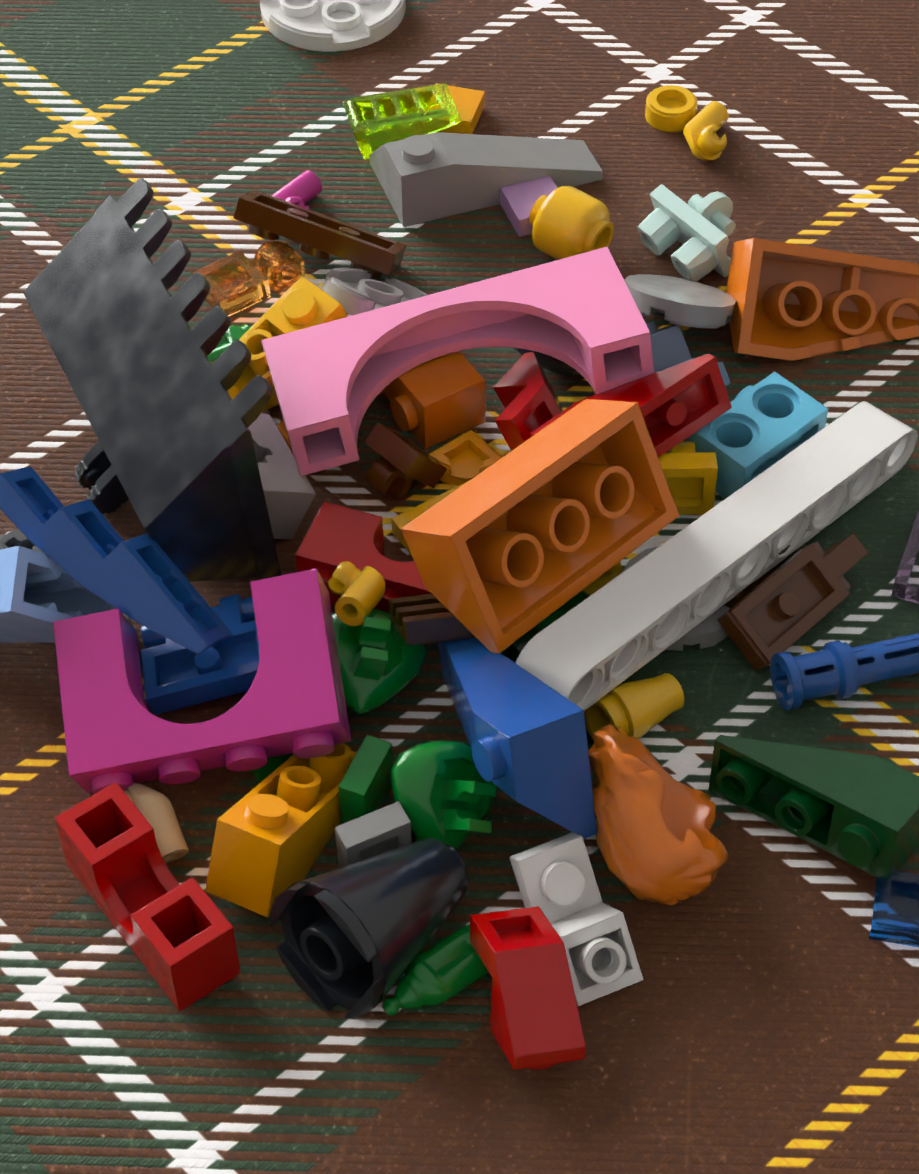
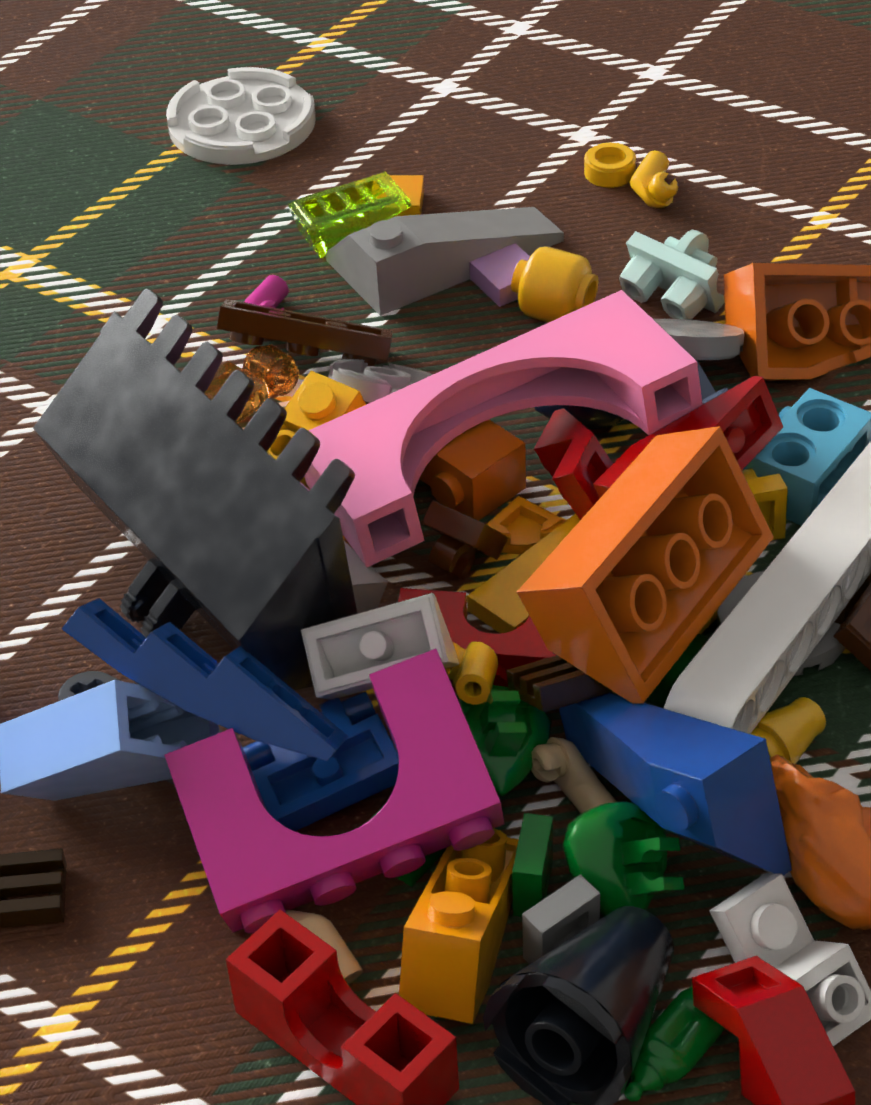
camera: 10 degrees left, 5 degrees down
(274, 549) = (353, 647): none -> white slope
(427, 694) = (564, 764): none -> tan arm

